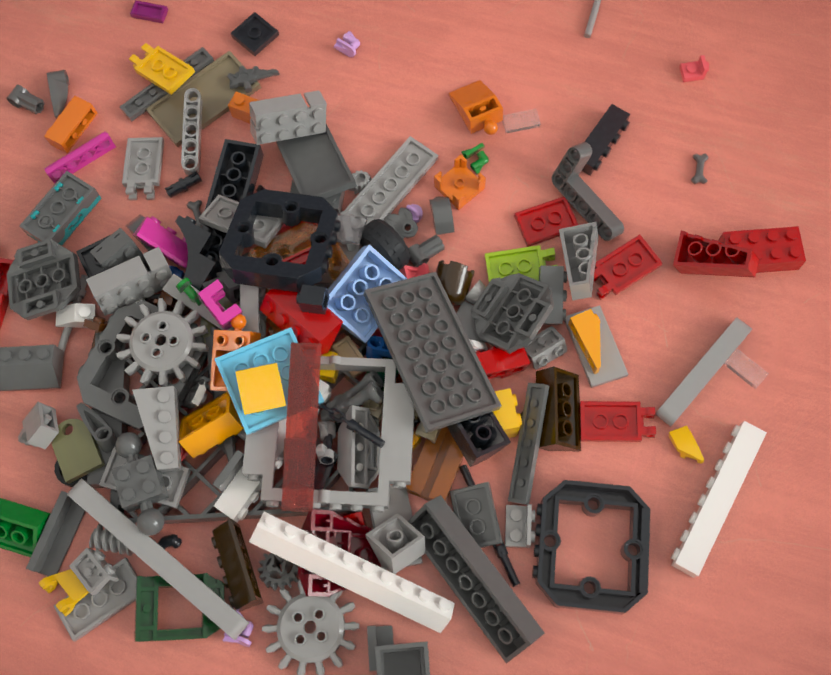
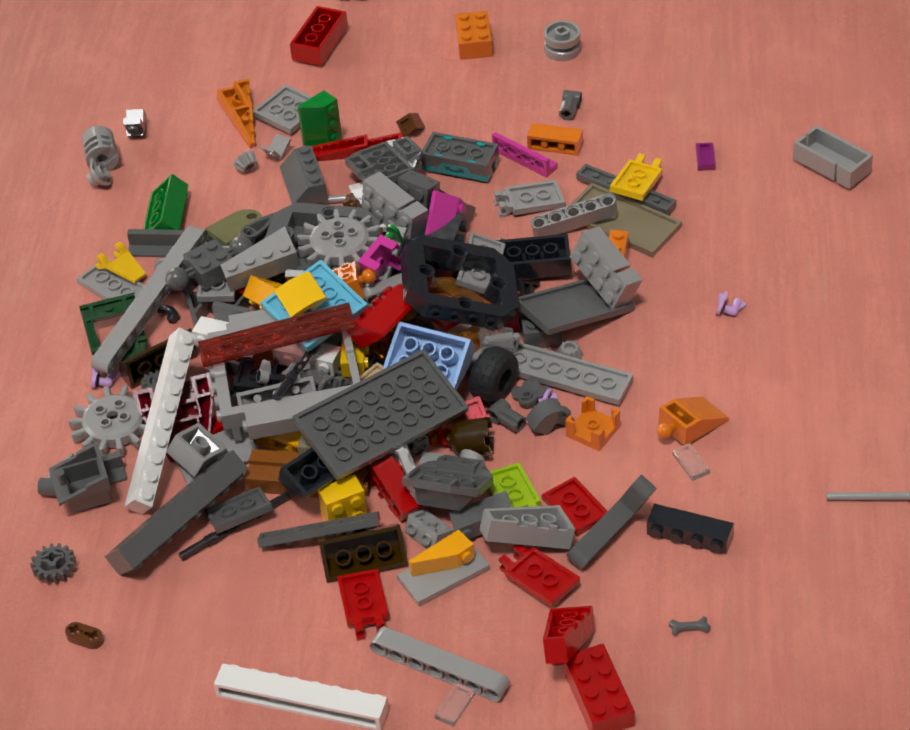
camera: 75 degrees right, 25 degrees down
(39, 426) = (251, 200): light grey hinge -> none
(58, 87) = (594, 117): dark grey piece -> none
(93, 570) = (135, 268): light grey bracket -> none
(183, 184) = (518, 229): black pin -> none
(246, 77) = (655, 240): dark grey piece -> none
(254, 34) = (709, 234): black plate -> none
(313, 299) = (396, 307): black brick -> none
(483, 159) = (637, 430): green piece -> none
(518, 526) = (237, 547): light grey bracket -> none
(605, 496) = (231, 637): black panel -> none
(686, 444) = (354, 660): yellow slope -> none
(694, 70) = (819, 598): coral bracket -> none

